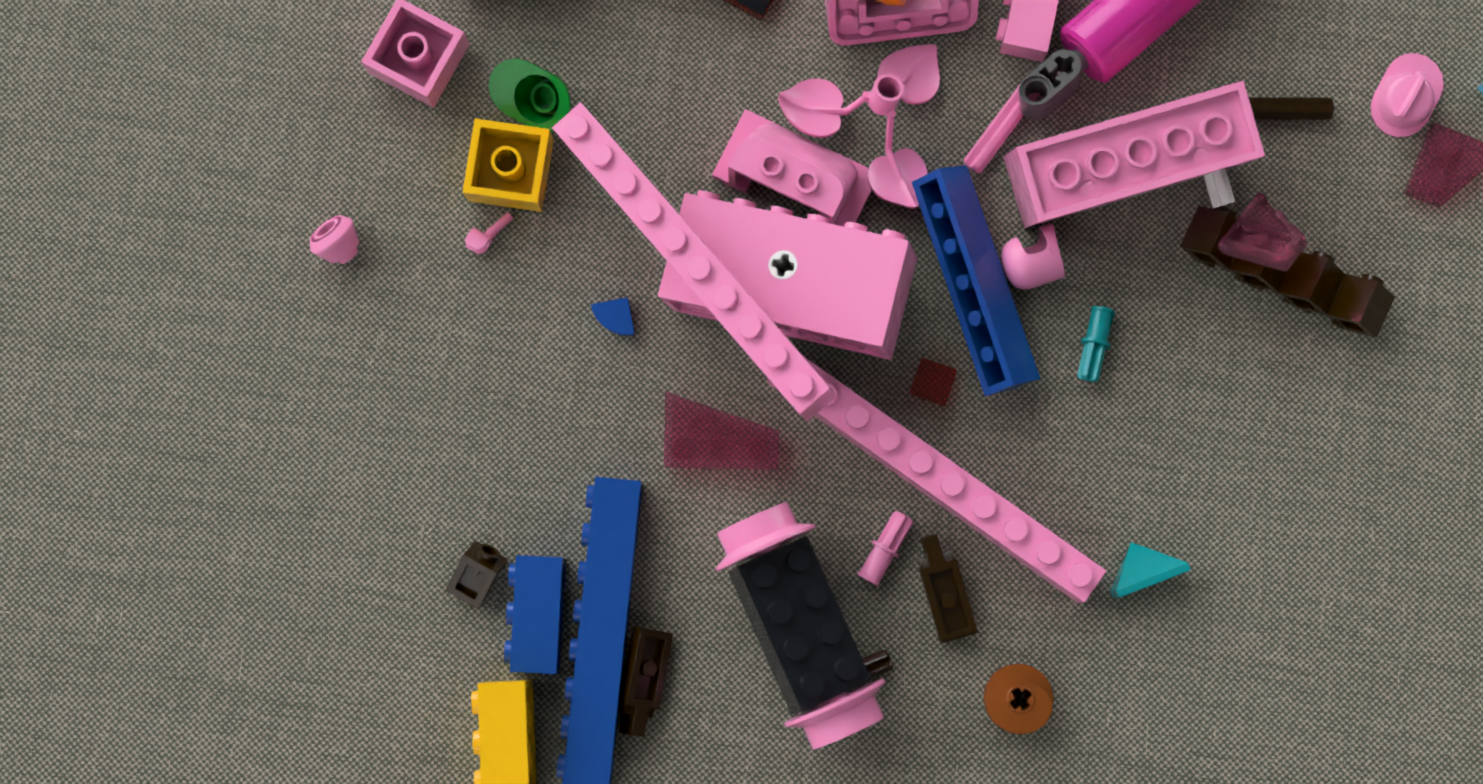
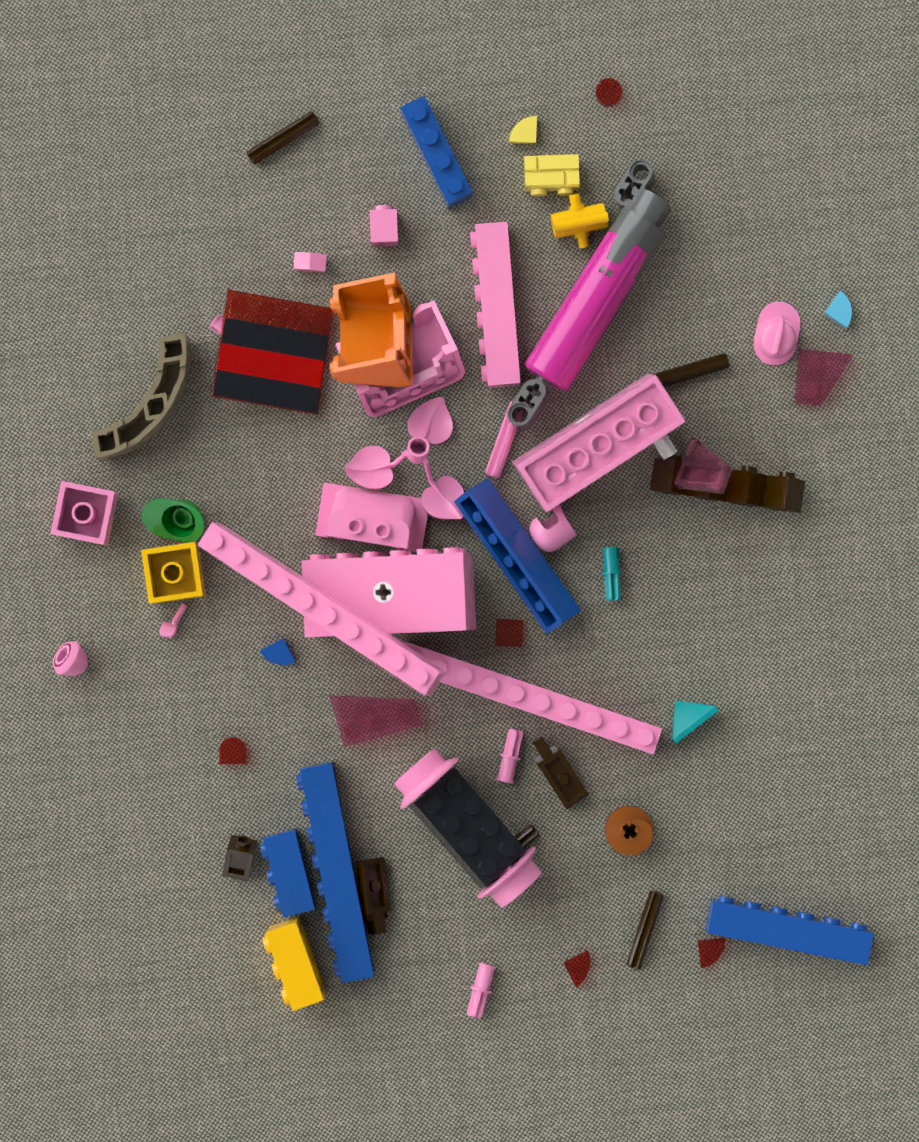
camera: 20 degrees left, 5 degrees up
(512, 428) = (233, 751): none -> clear red tile

